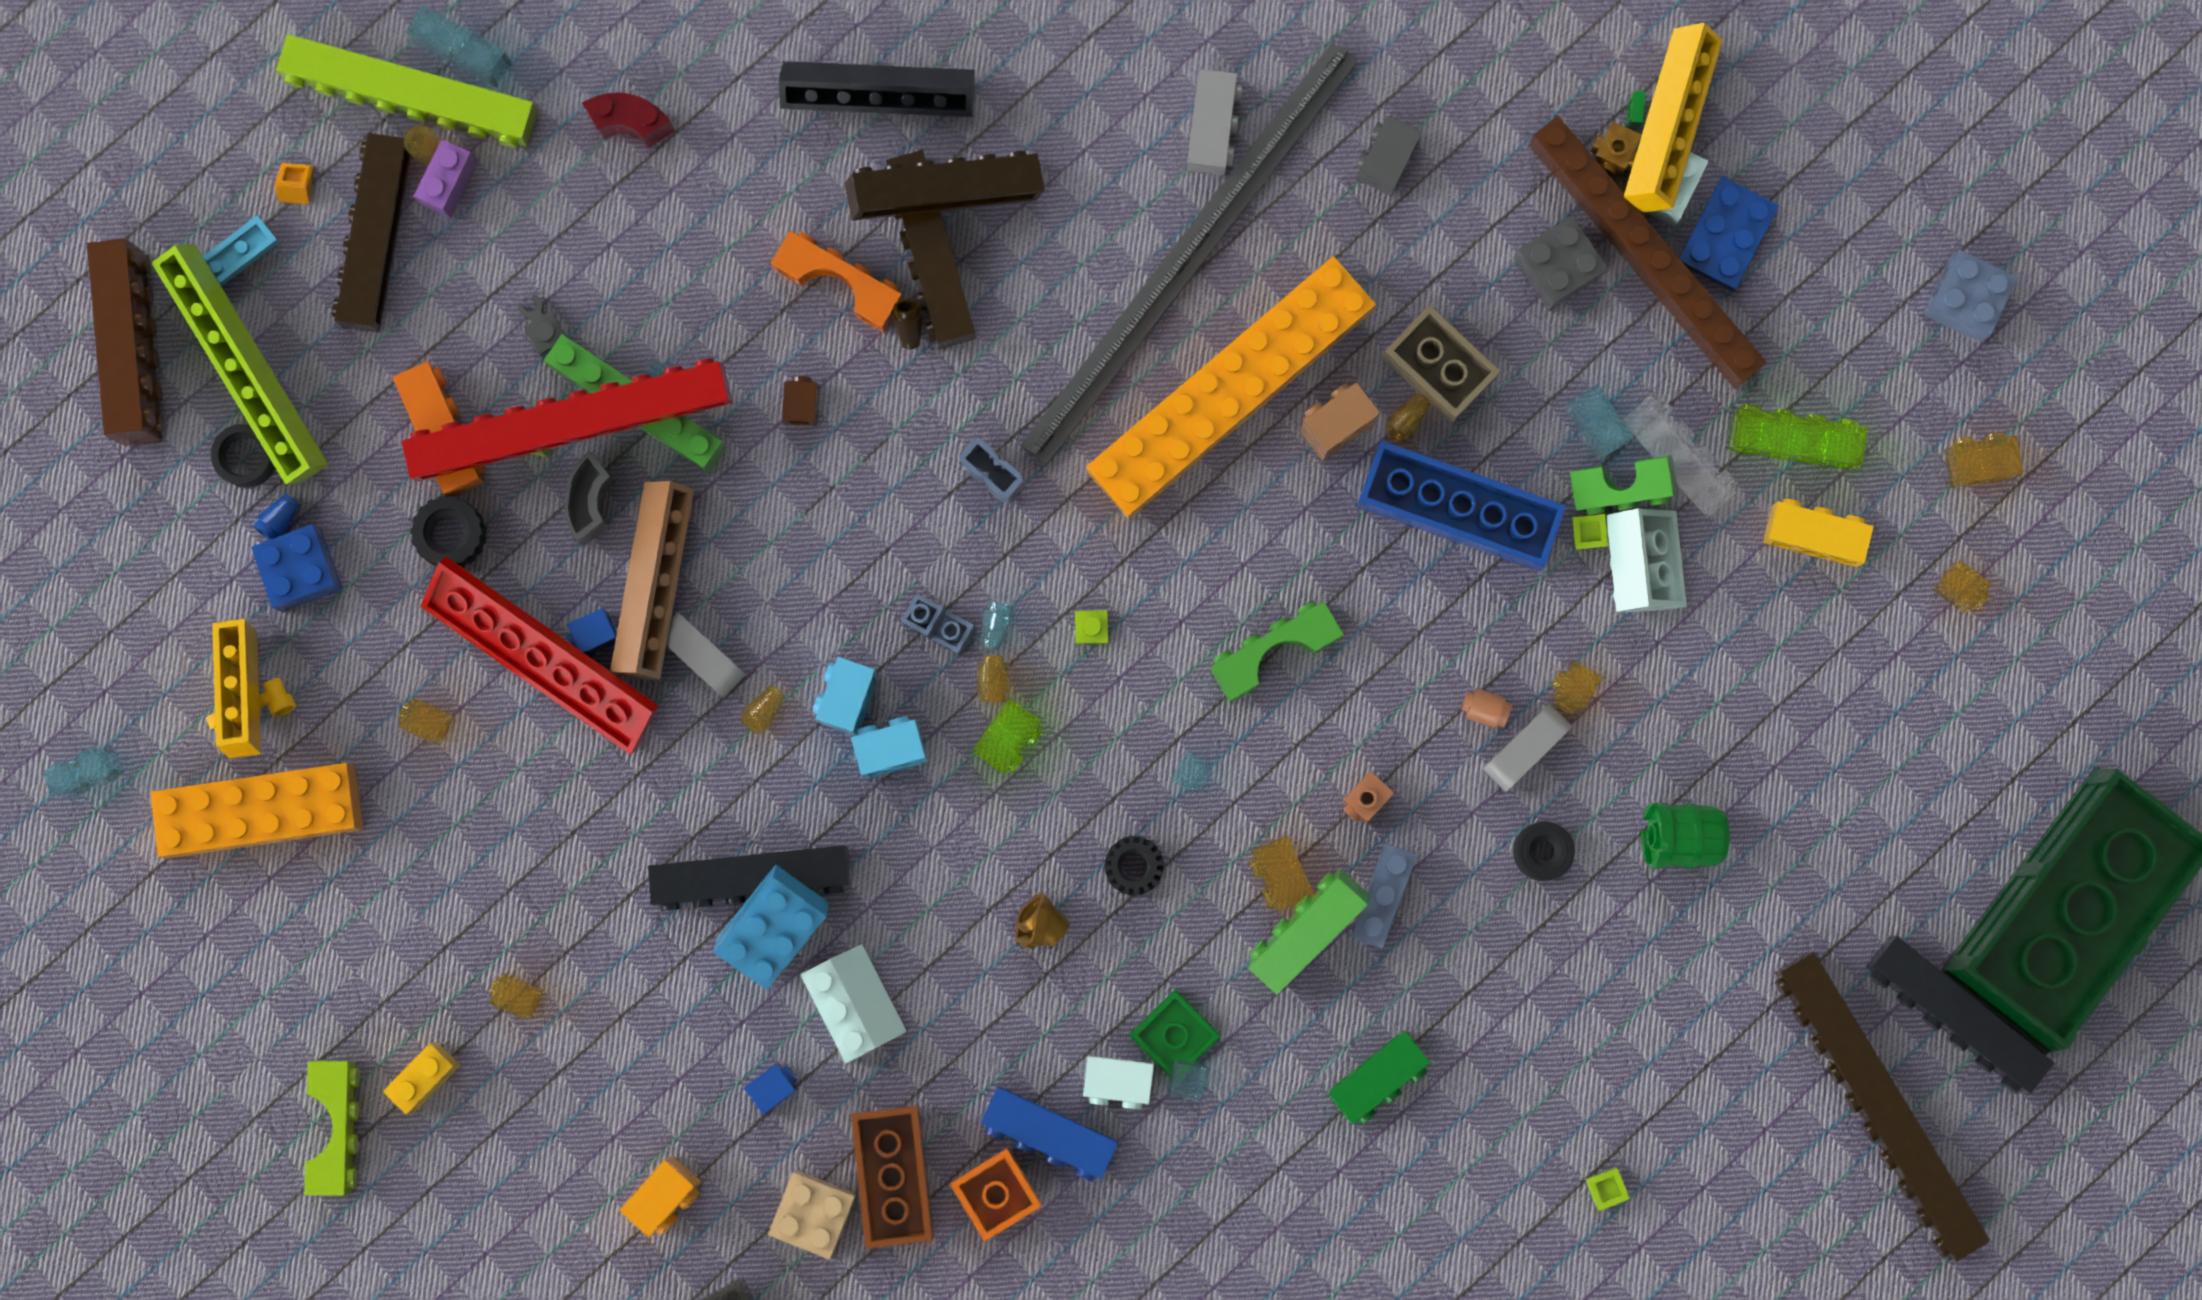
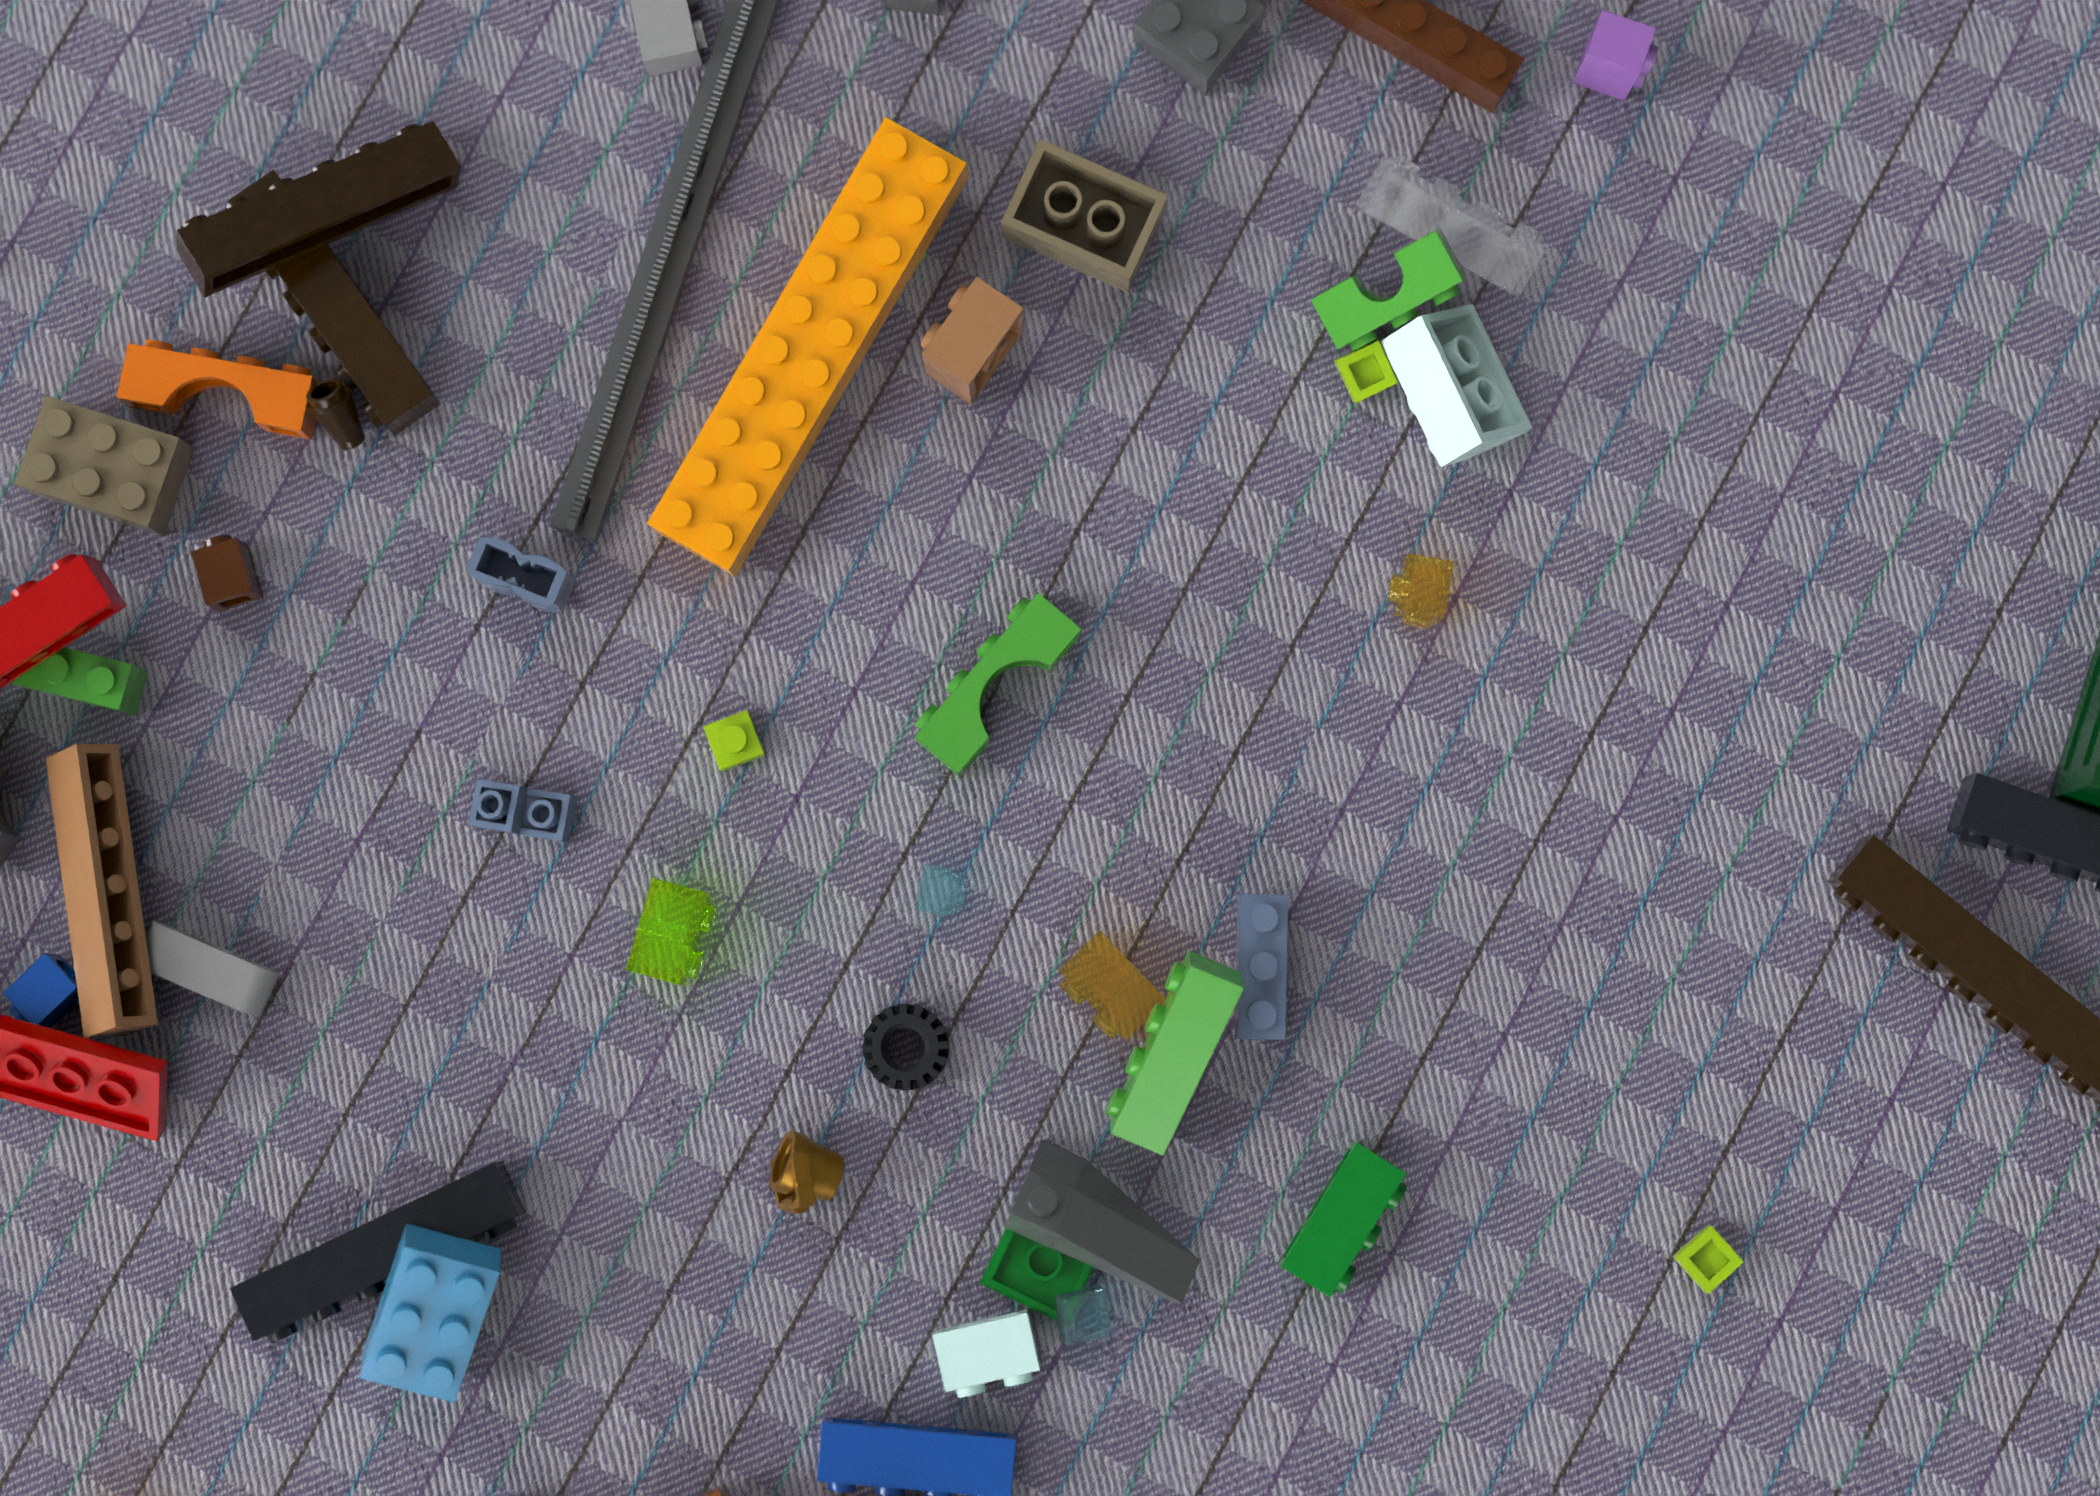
camera: 20 degrees left, 0 degrees up
(746, 304) = (104, 465): none -> dark tan brick
(762, 710) = (318, 1015): clear yellow cone -> none
(846, 695) = (425, 954): medium azure brick -> none
(853, 1003) = (583, 1376): light aqua slope -> none
(877, 89) = (183, 109): black brick -> none
(889, 748) = (509, 1006): medium azure brick -> none
(992, 679) = (622, 859): clear yellow brick -> none
(995, 623) = (600, 782): clear light blue cone -> none
(1215, 1020) = (1090, 1219): none -> dark grey wedge
(1366, 798) = (1191, 841): nougat brick -> none
(1406, 419) = (1064, 306): clear yellow cone -> none
(1461, 506) = (1179, 398): blue brick -> none
(1486, 708) = (1311, 660): nougat brick -> none
(1527, 747) = (1385, 694): light grey beam -> none
(1562, 847) = (1484, 821): black tyre -> none
(1599, 422) = (1326, 220): clear light blue brick -> none
(1684, 836) = (1642, 739): green piece -> none
(1797, 438) = (1600, 148): clear neon green brick -> none
(1818, 533) = (1674, 266): yellow brick -> none
(1828, 381) = (1616, 56): none -> medium lavender brick
(1963, 587) = (1894, 271): clear yellow brick -> none
(1983, 460) = (1860, 91): clear yellow brick -> none

